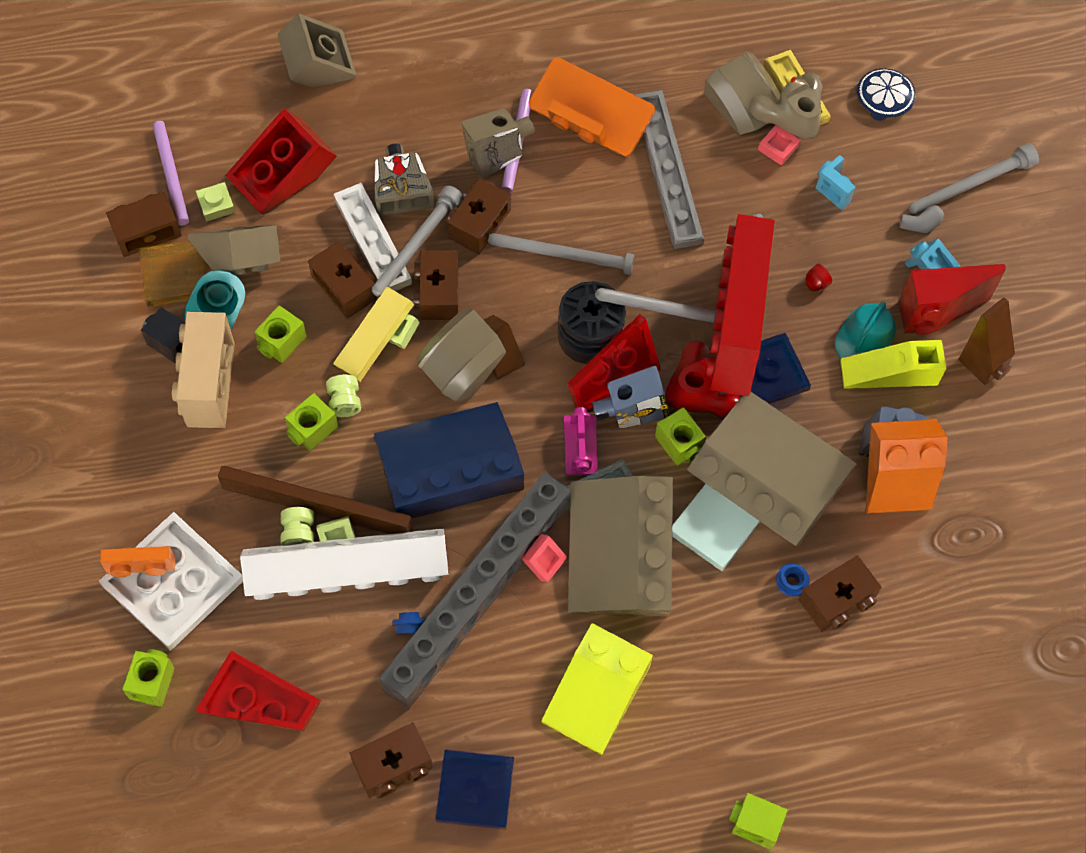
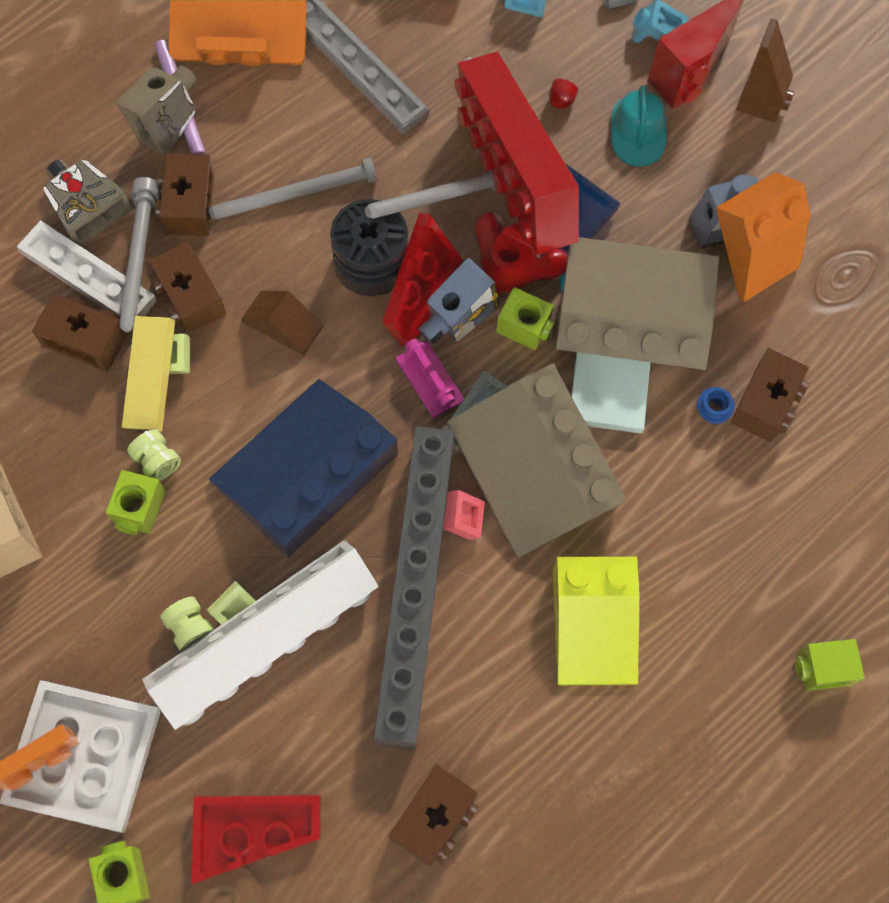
camera: 30 degrees left, 5 degrees up
(280, 322) = (42, 411): lime brick -> none
(319, 502) = (185, 585): reddish brown tile -> none
(408, 623) = (365, 660): blue plate -> none
(461, 355) = (257, 347): dark tan slope -> none
(475, 789) = (536, 795): clear blue plate -> none
(896, 366) = (689, 143): neon yellow slope -> none

